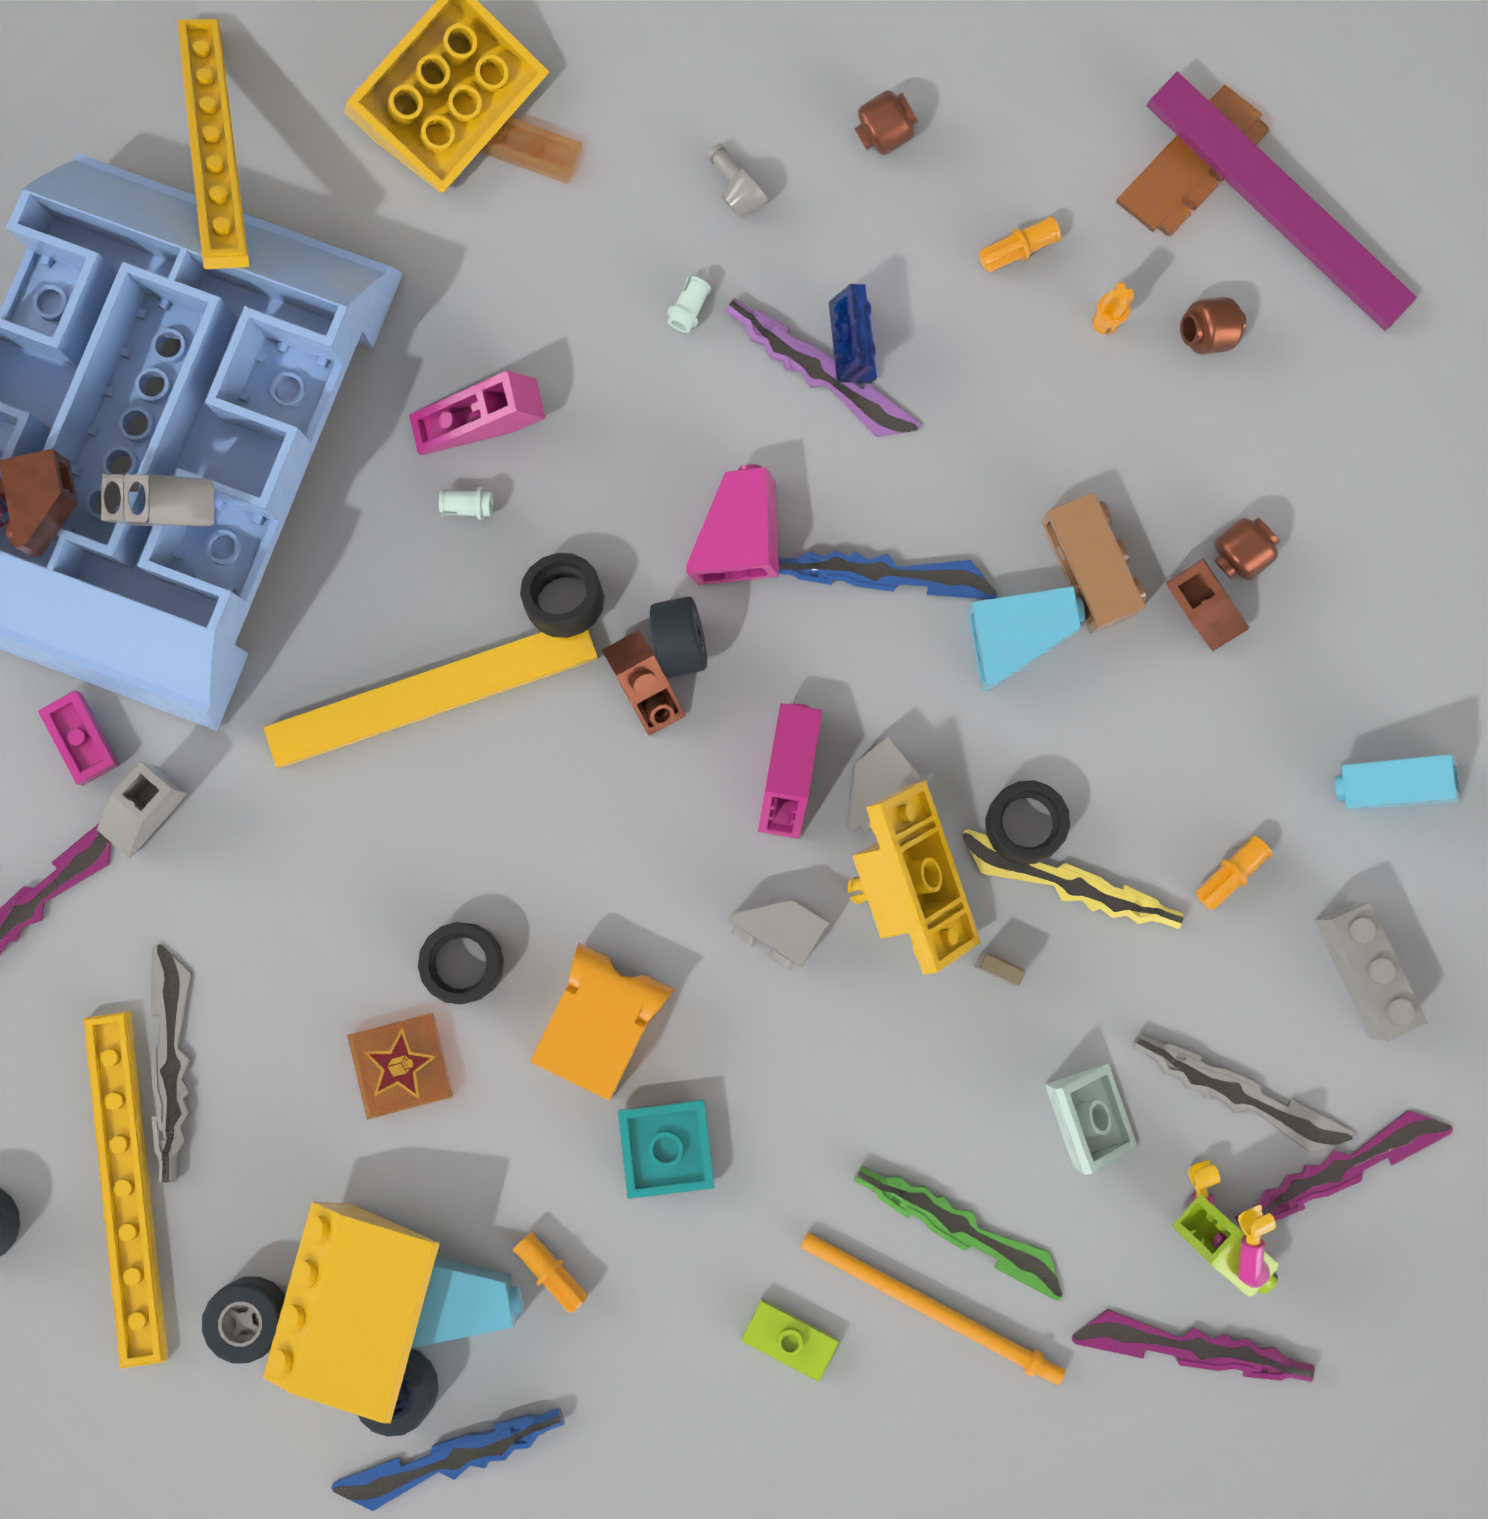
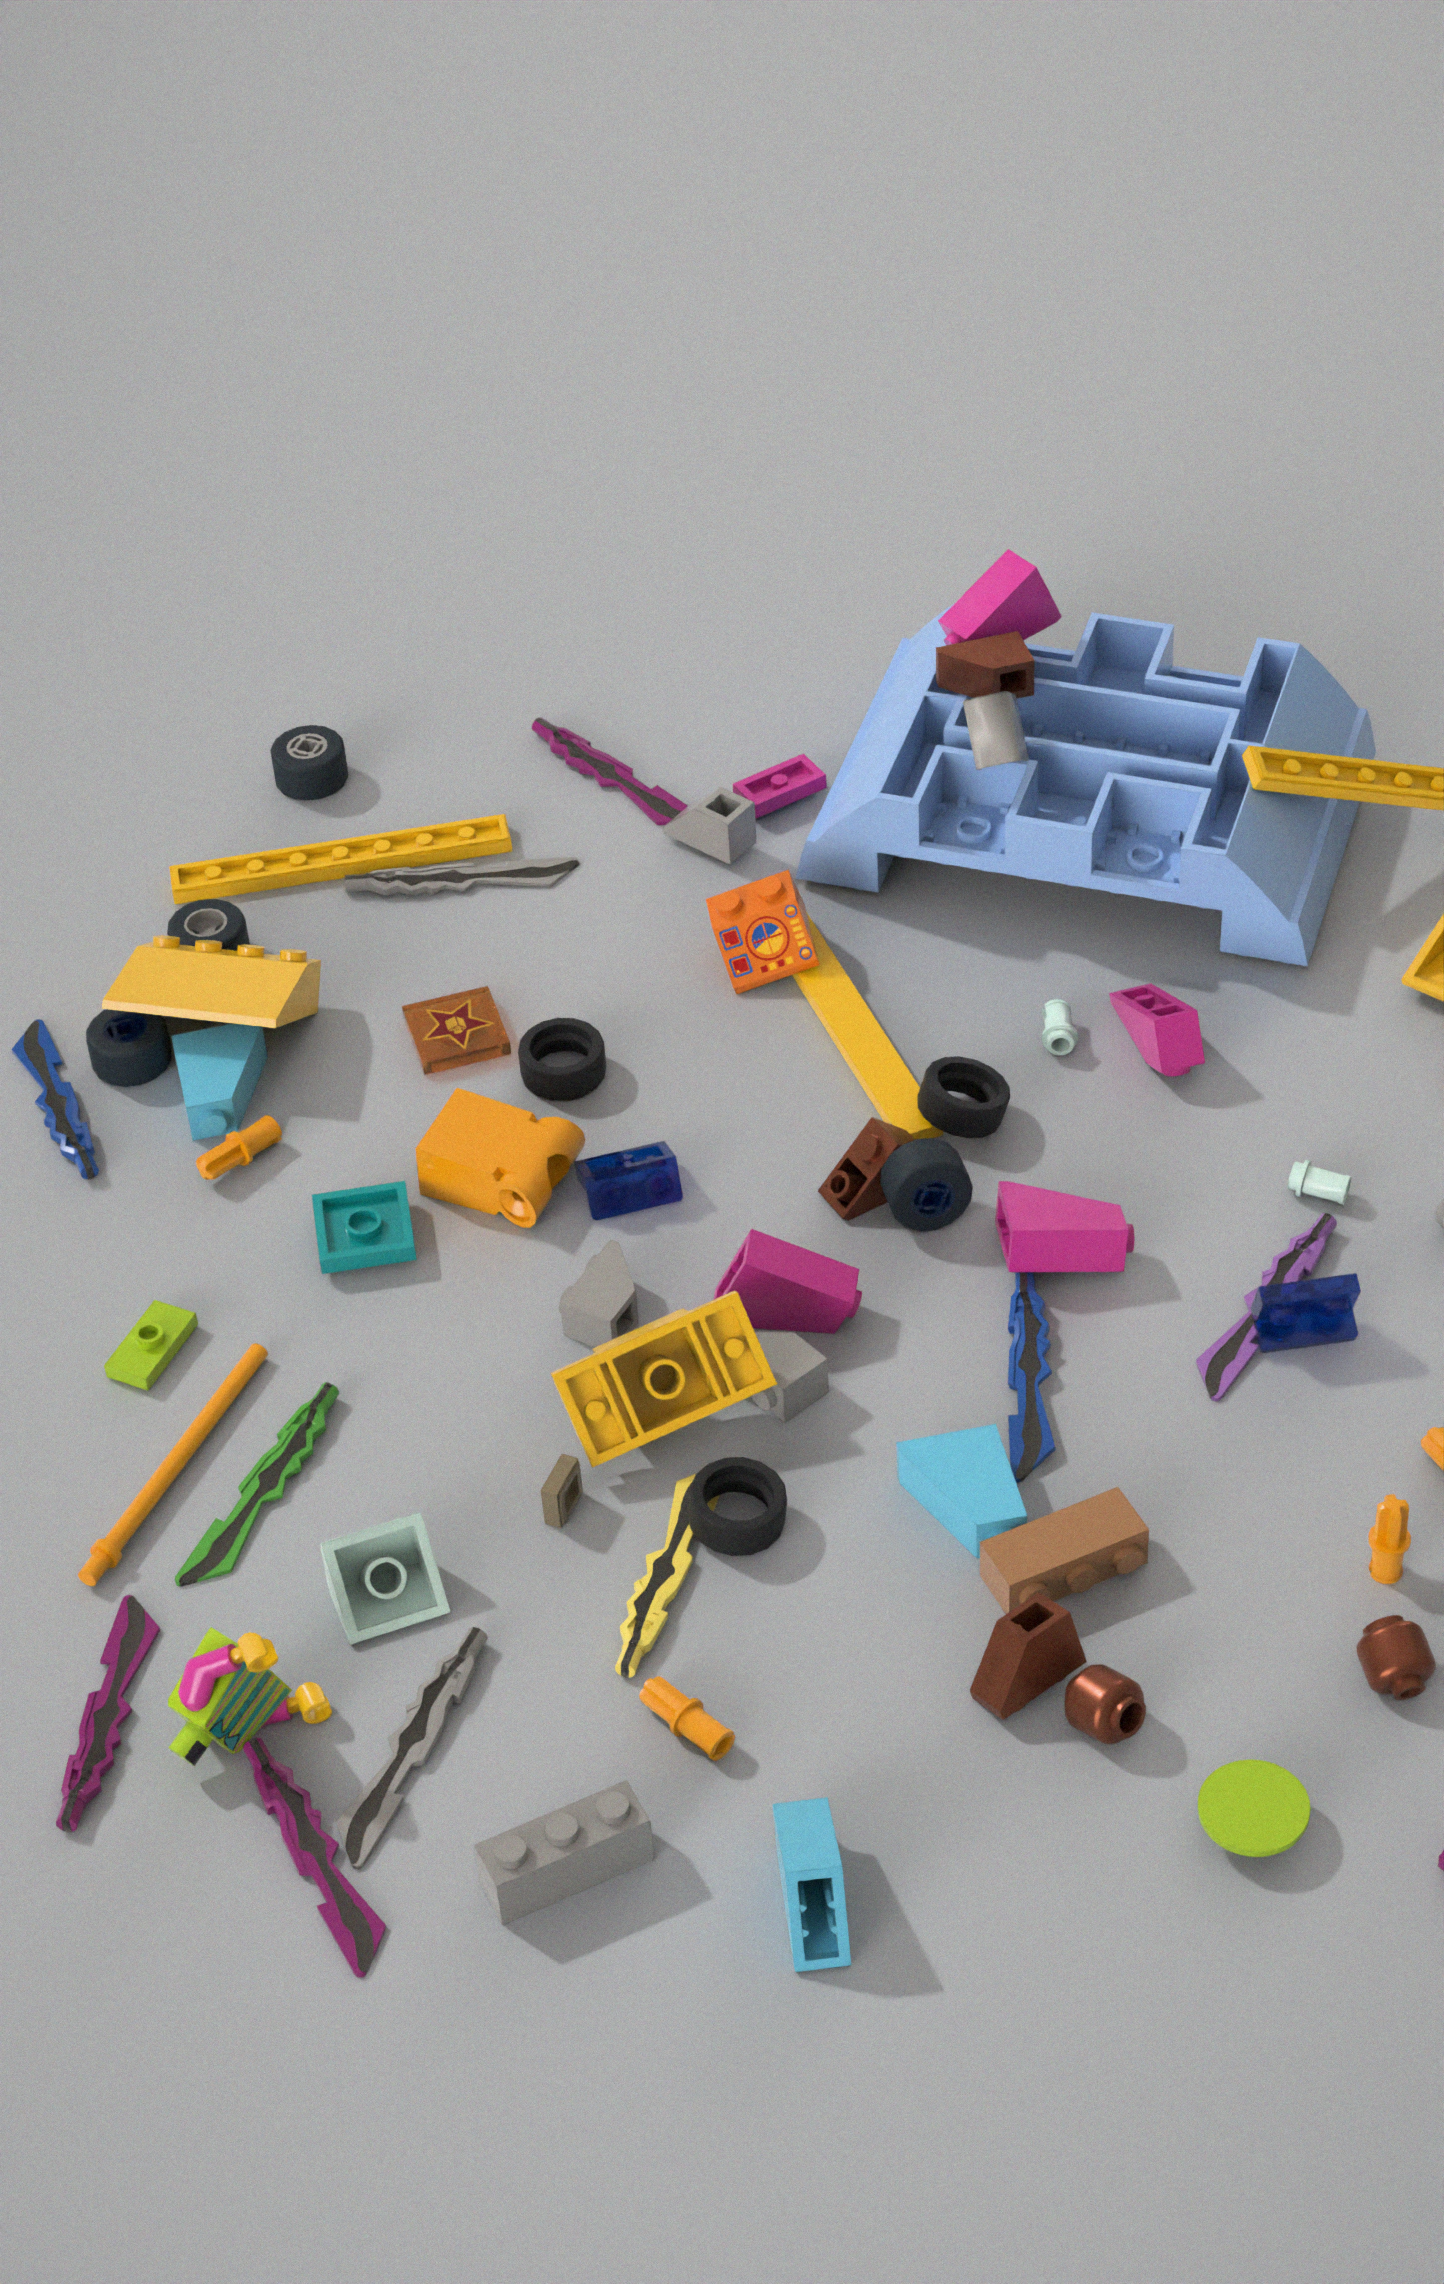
camera: 90 degrees right, 40 degrees down
(319, 764) = (762, 931): none -> orange slope
(624, 904) = (630, 1180): none -> clear blue bracket
(1349, 450) = (1253, 1808): none -> lime piece

